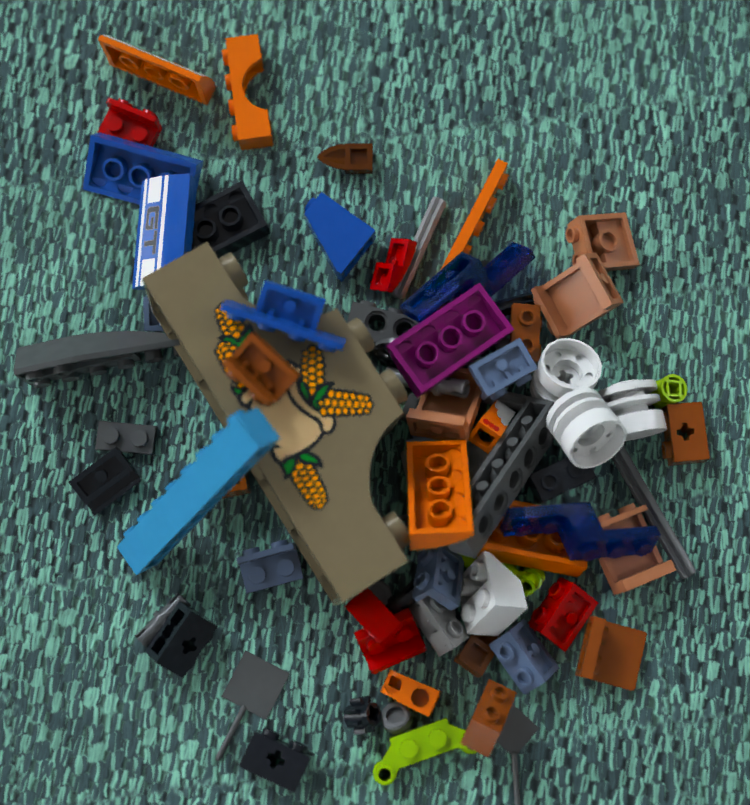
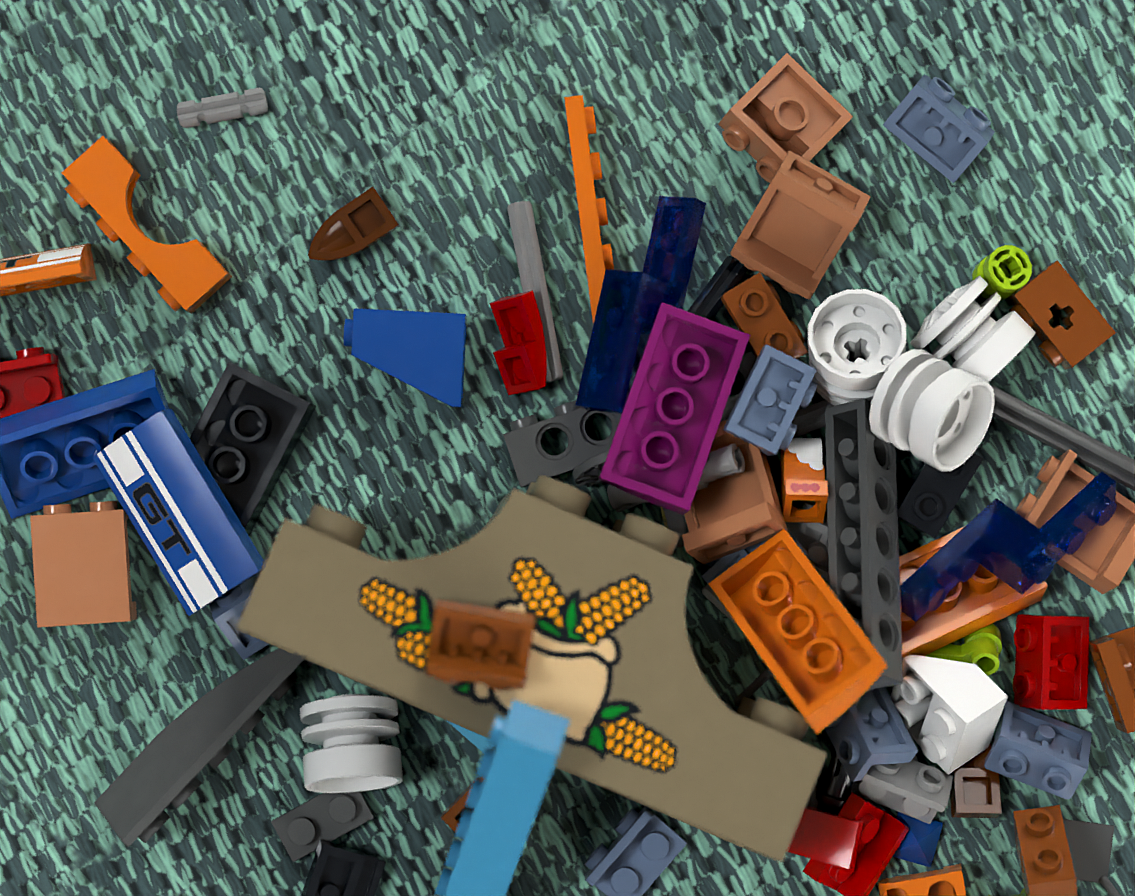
camera: 40 degrees left, 10 degrees up
(97, 230) = (81, 565): none -> nougat panel
(165, 403) = (350, 736): none -> white wheel
(287, 311) = (460, 545): blue bracket -> none
(325, 63) = (222, 107): none -> light grey axle
(426, 662) = (920, 841): none -> blue slope
(681, 298) = (940, 127): none -> sand blue bracket

